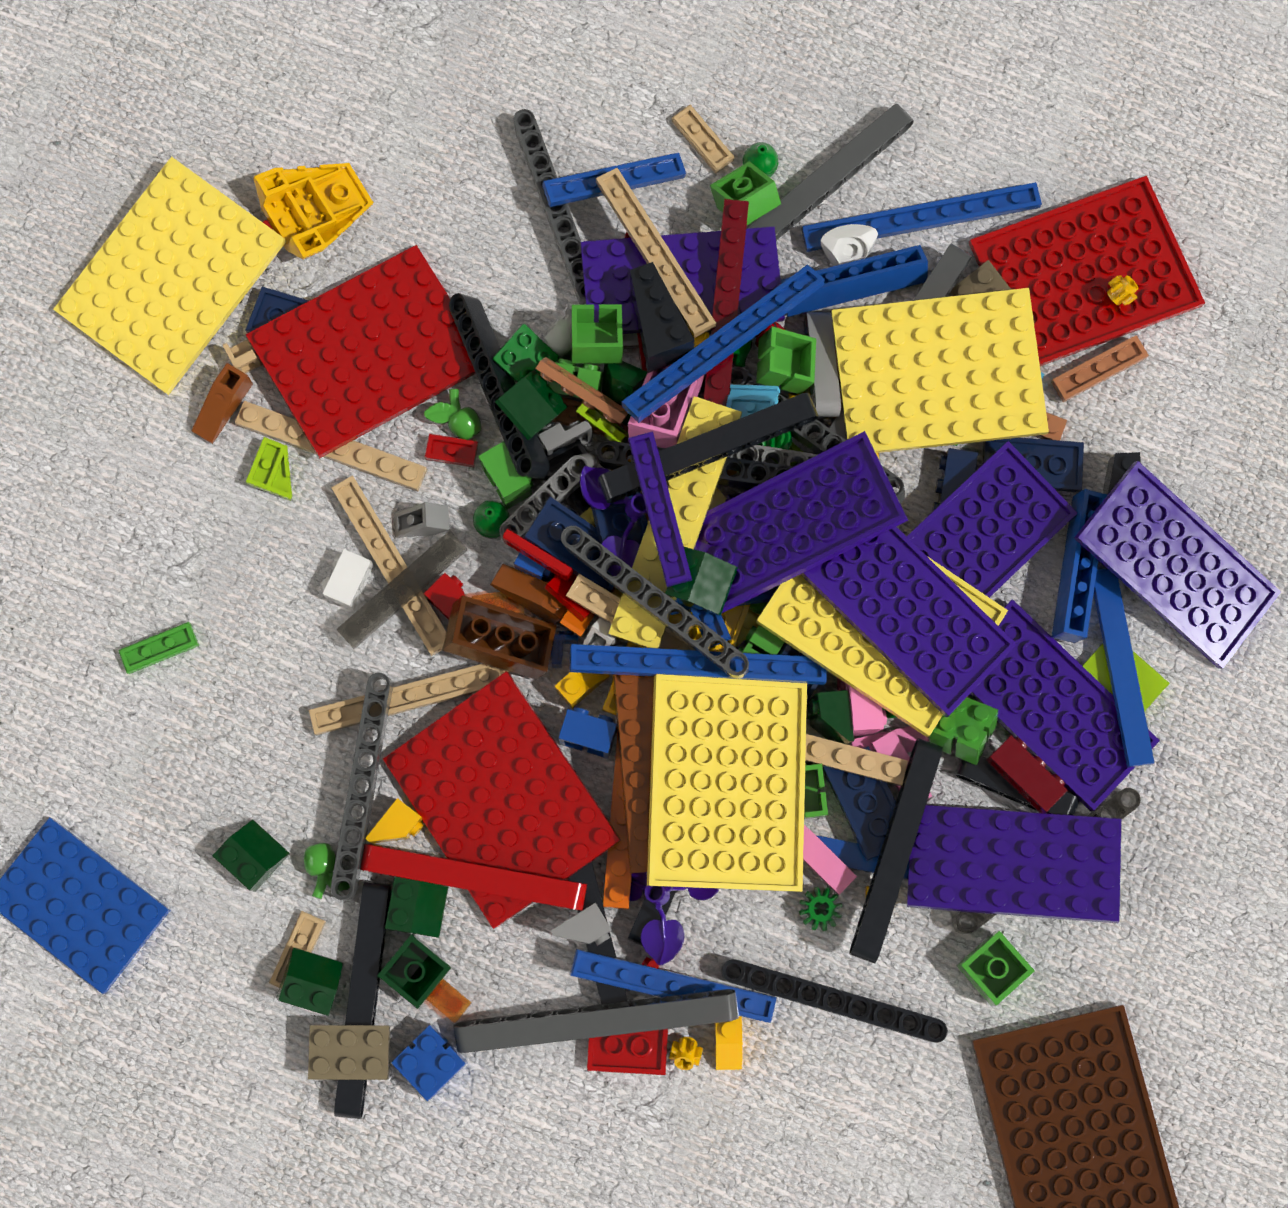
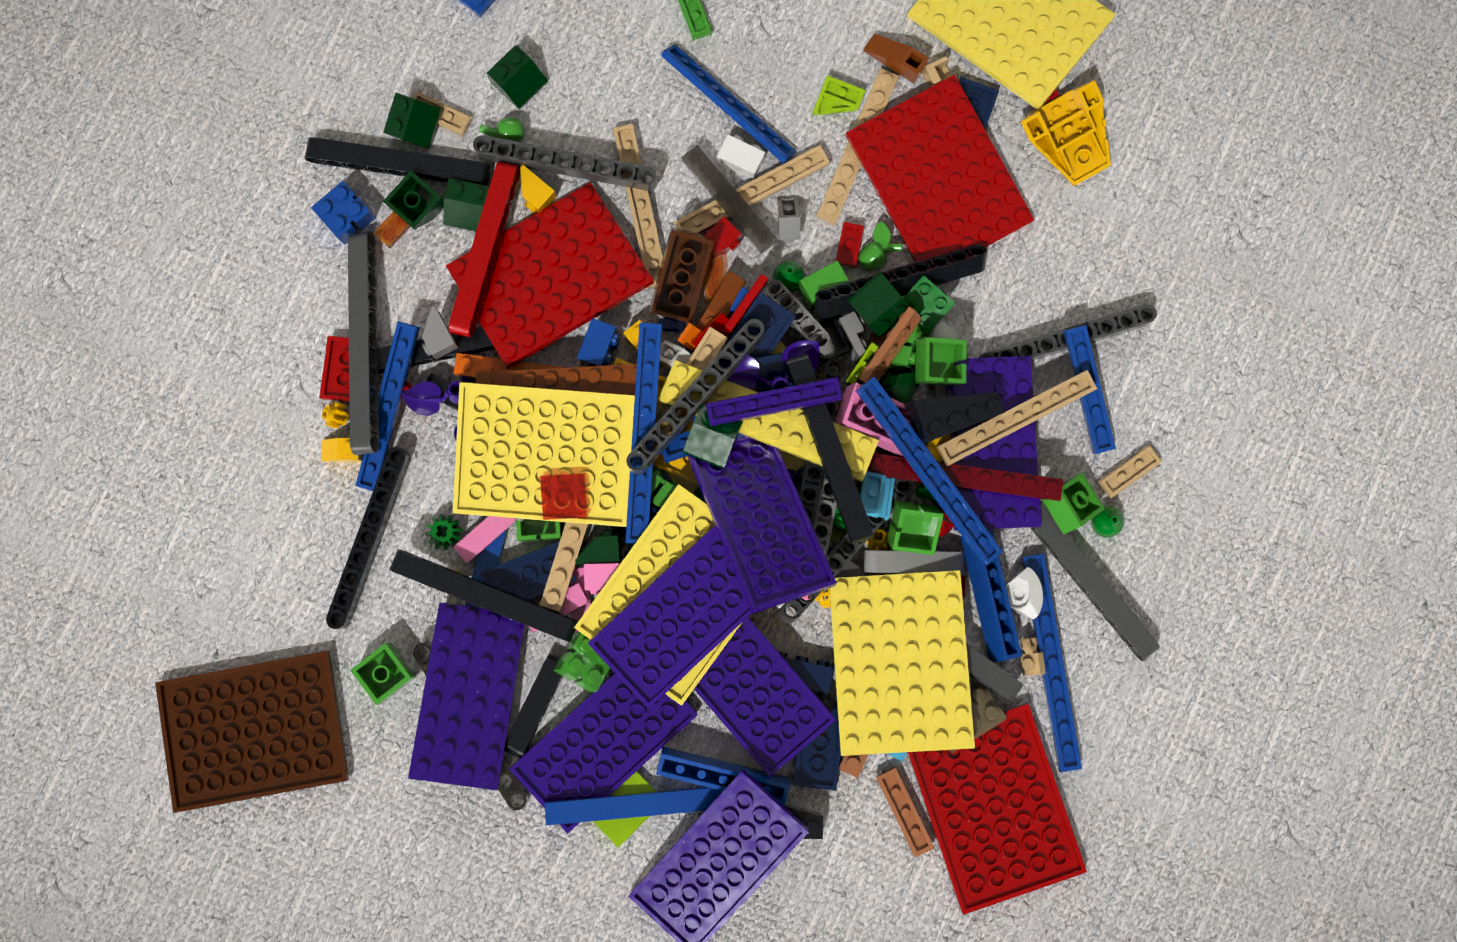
camera: 90 degrees right, 5 degrees up
(280, 597) = (728, 103): none -> blue tile
(349, 1052) = (353, 148): dark tan plate -> none
(776, 756) = (563, 496): none -> clear red tile
(923, 234) = (1031, 661): none -> tan plate
(1027, 774) = (541, 712): dark red brick -> none
(1122, 290) = (974, 837): yellow gear -> none

